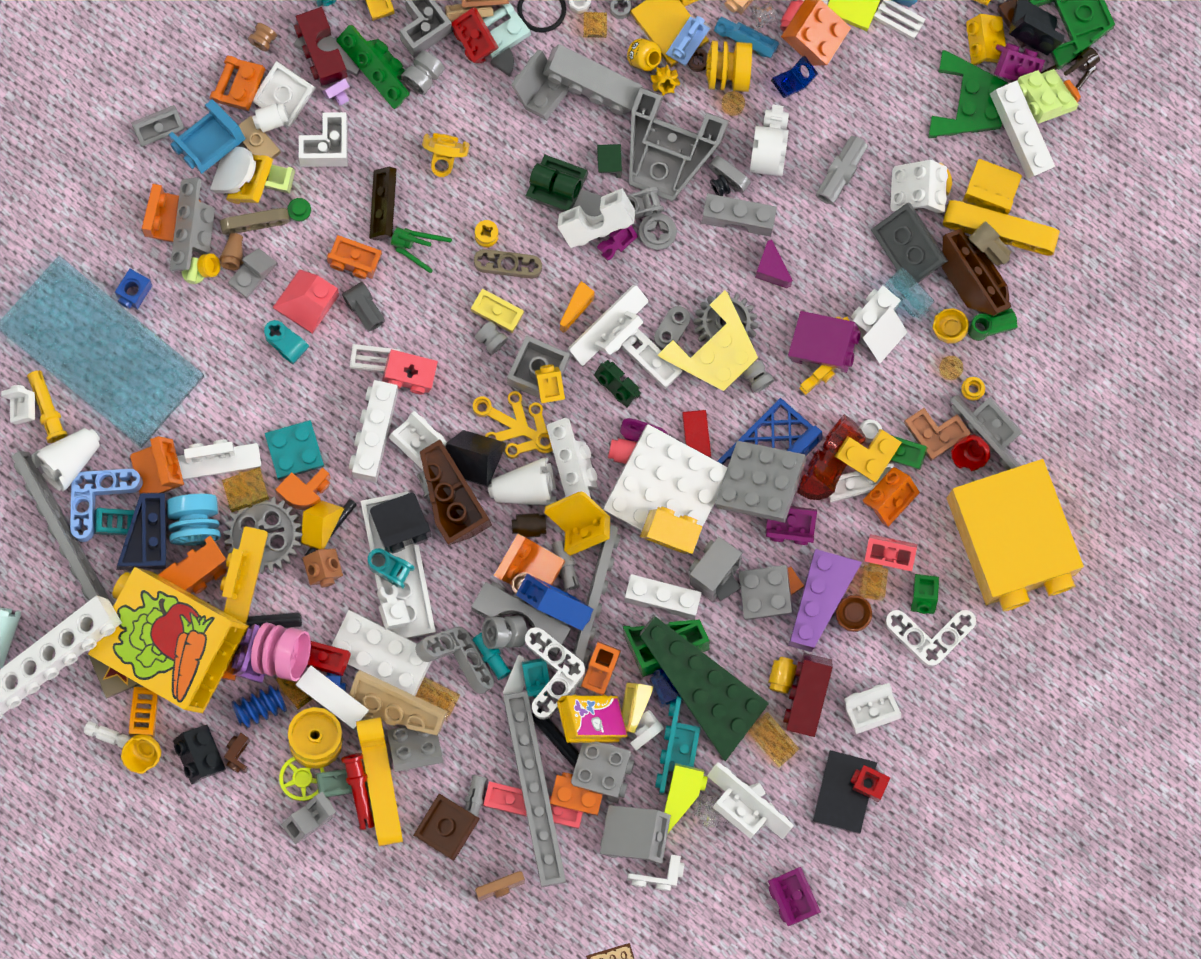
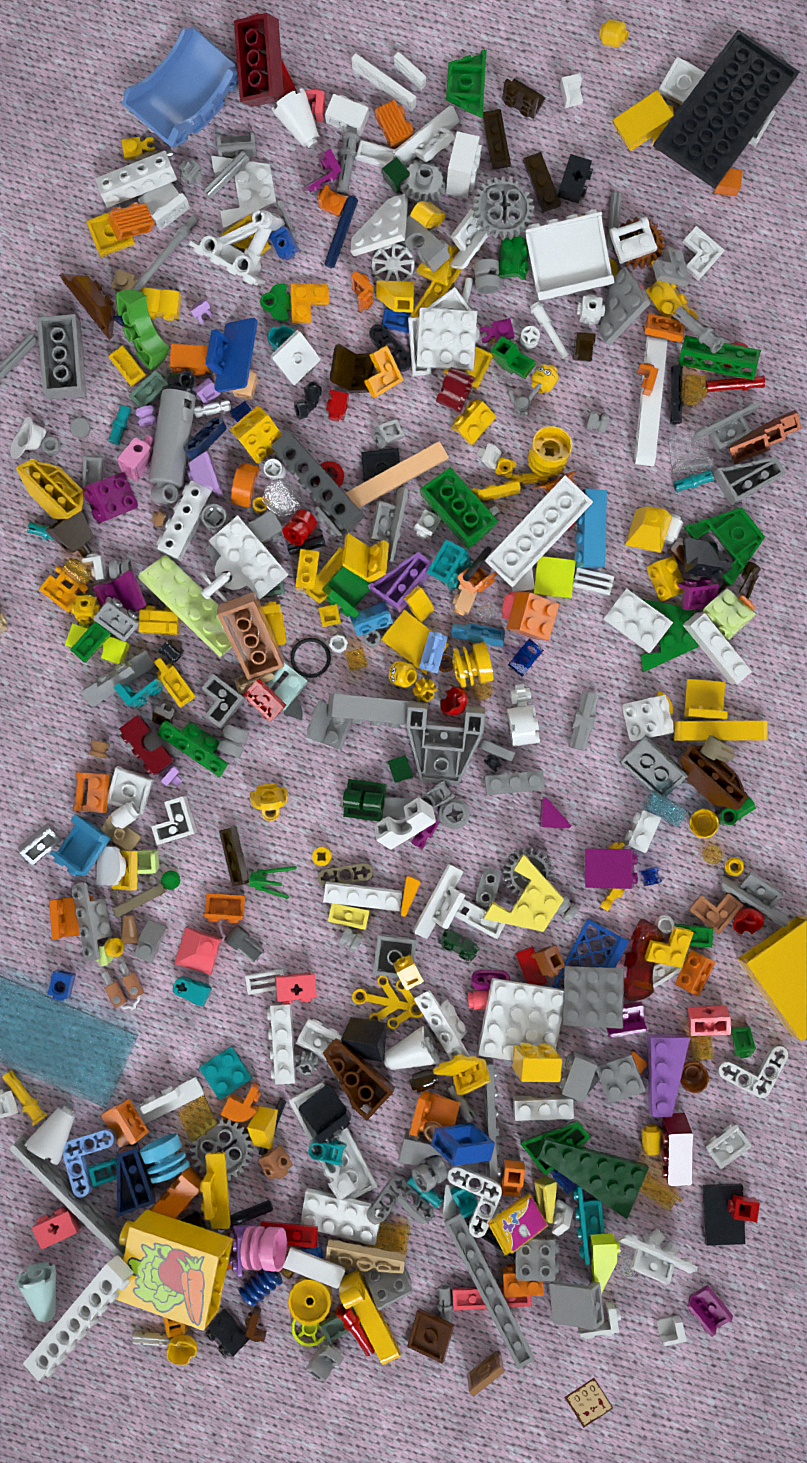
camera: 10 degrees left, 10 degrees up
(24, 575) = (49, 1235): none -> coral brick
(193, 319) = (115, 993): none -> nougat piece
(348, 17) = (161, 715): none -> dark brown tile
(402, 460) = (306, 1062): none -> light grey gear
(520, 292) = (362, 896): none -> white plate
(697, 104) = (455, 702): none -> red hair
(720, 428) = (549, 960): none -> dark orange brick
(740, 908) = (671, 1330): none -> white panel
(870, 369) = (651, 876): none -> clear blue wheel
(885, 334) = (655, 846): white sticker -> none
(938, 75) = (638, 620): none -> white plate

